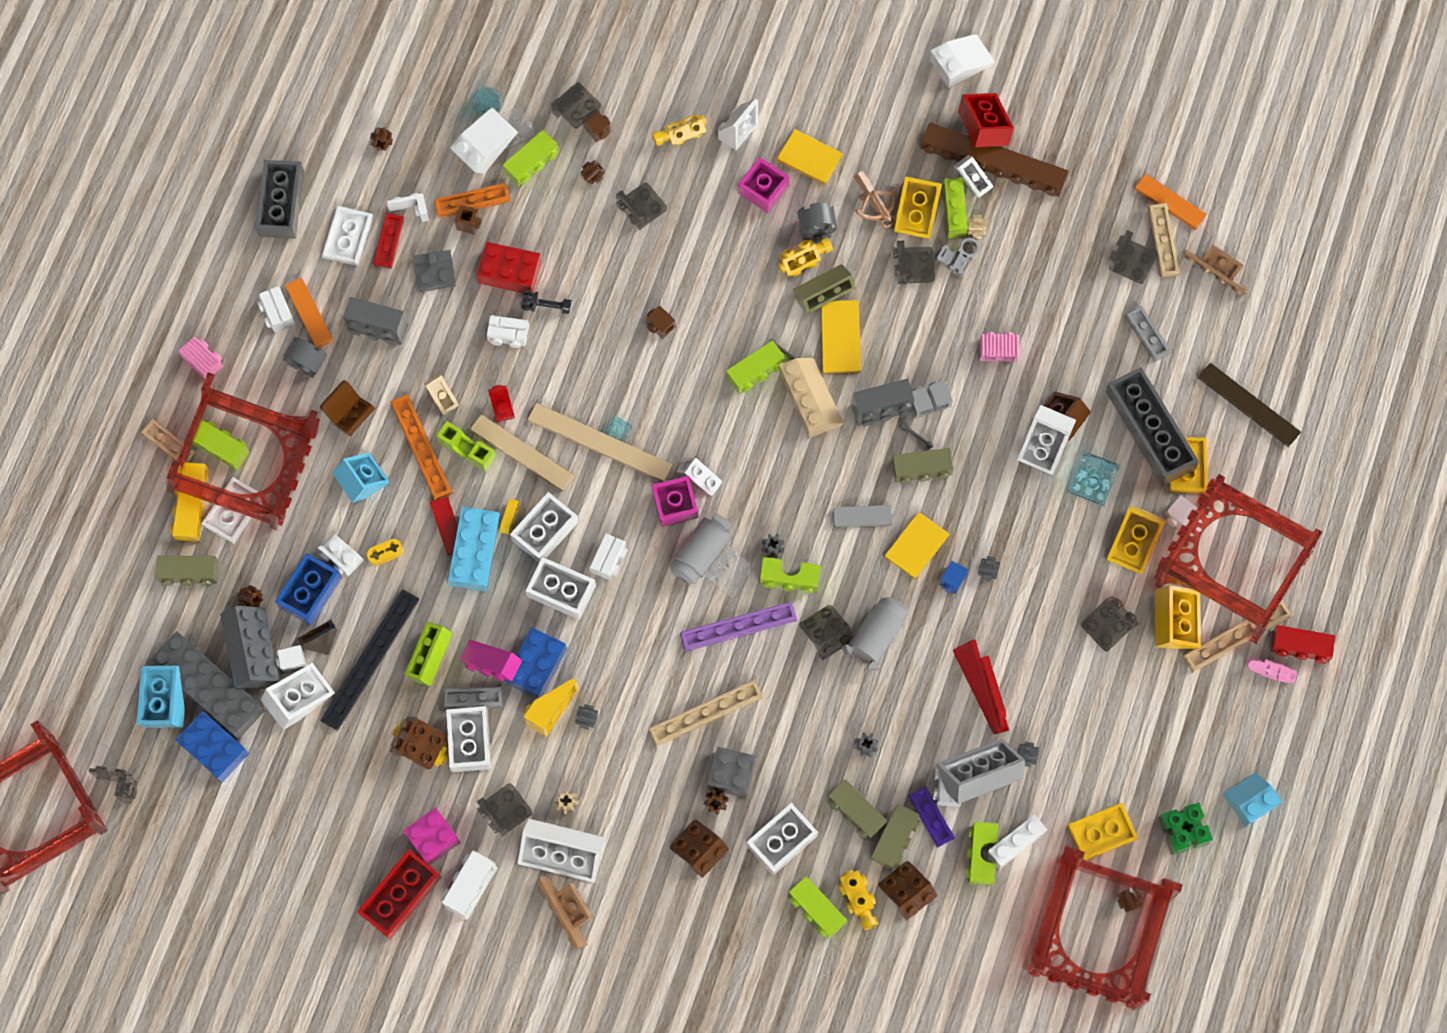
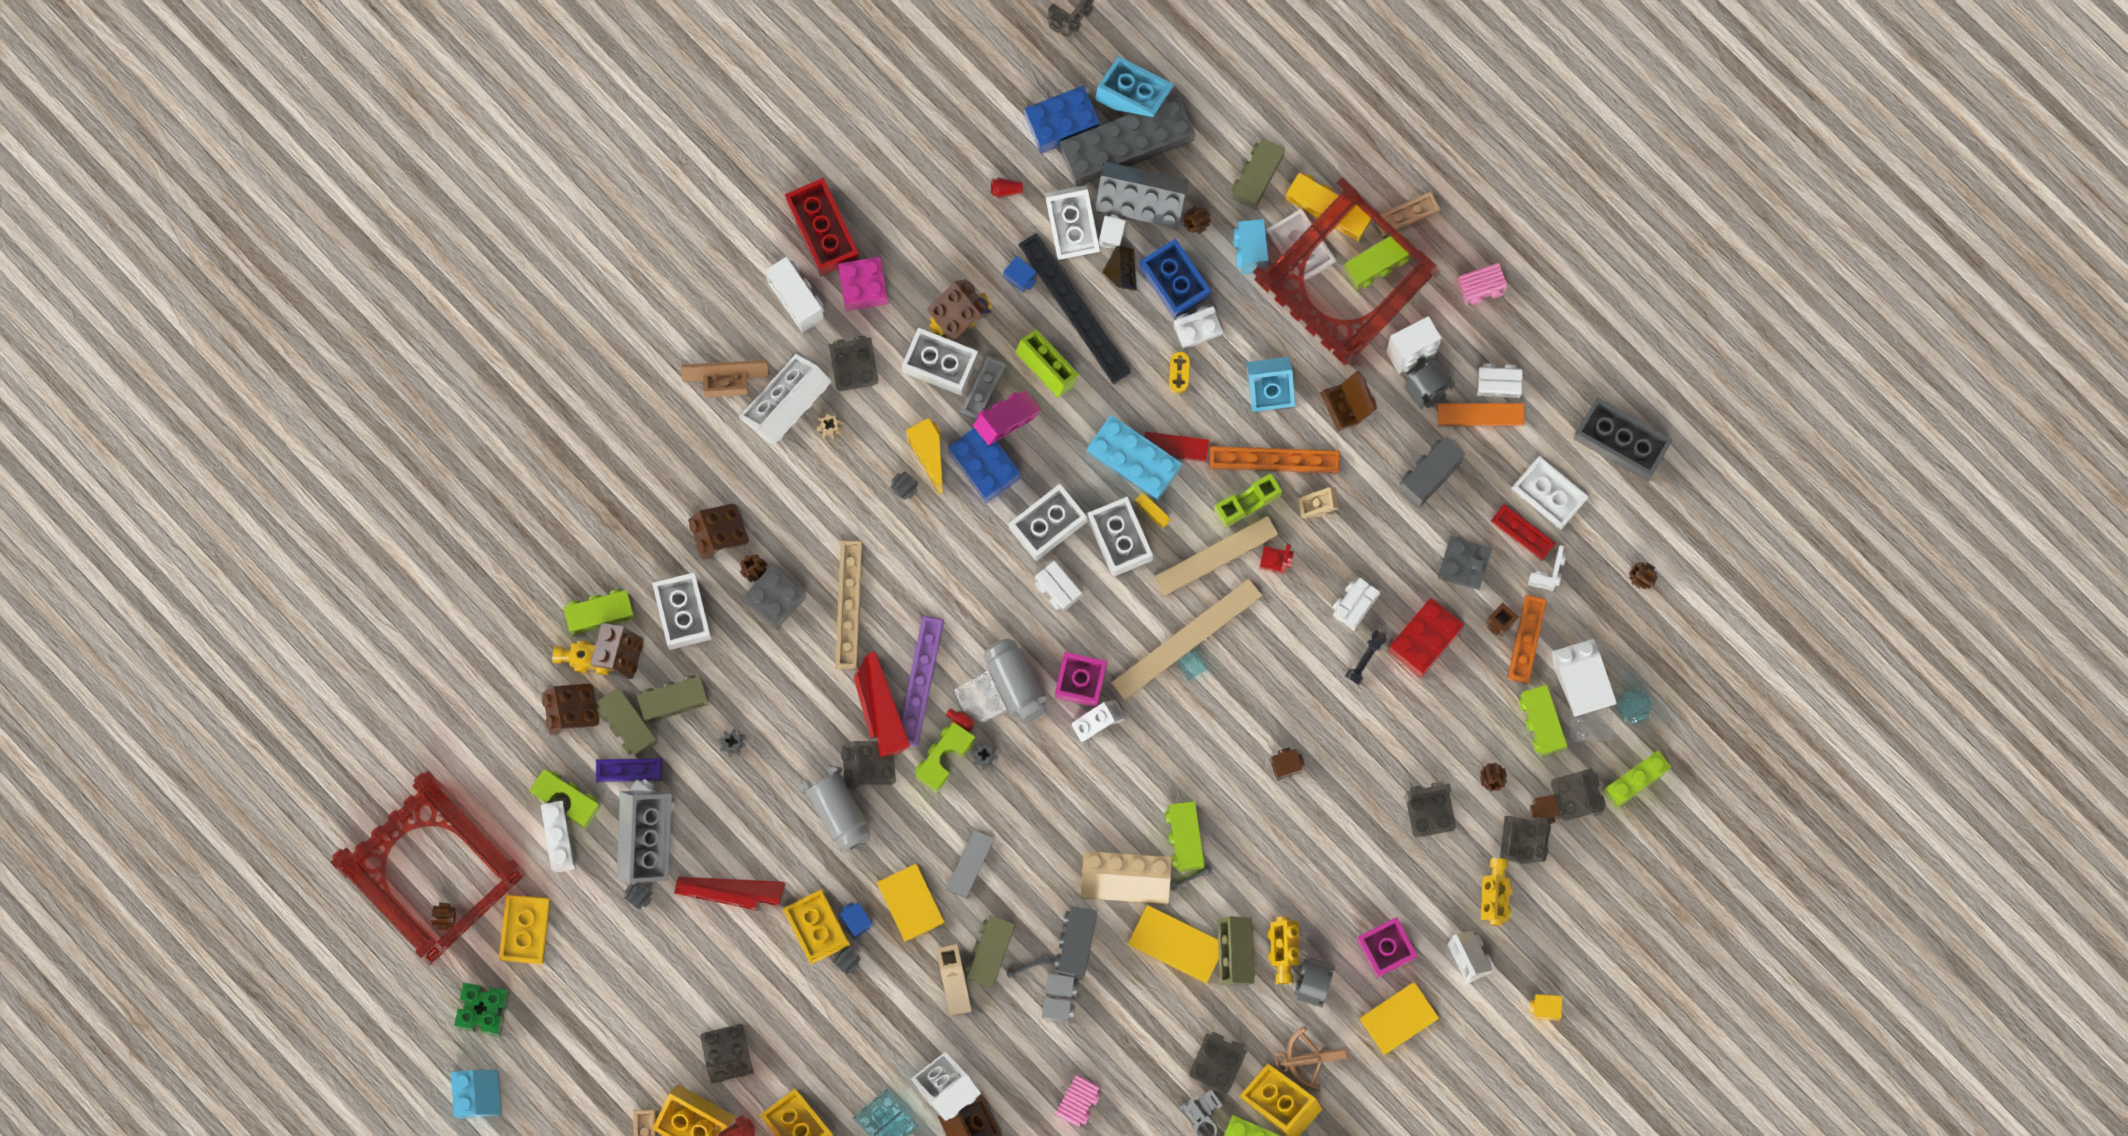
camera: 115 degrees right, 5 degrees up
(253, 541) = (1251, 245): none -> medium azure brick
(278, 377) = (1413, 345): none -> white brick
(293, 764) = (1004, 187): none -> red cone
(363, 714) = (1020, 275): none -> blue brick
(542, 74) = (1637, 779): none -> lime brick
(629, 125) = (1525, 840): none -> clear smoke bracket
(746, 59) = (1546, 1007): none -> yellow brick
(753, 578) = (961, 719): none -> red cylinder
(777, 643) = (879, 708): none -> red wedge
(842, 873) = (617, 650): none -> reddish brown bracket
(958, 482) = (953, 980): none -> tan slope
(976, 604) = (816, 927): none -> yellow tile

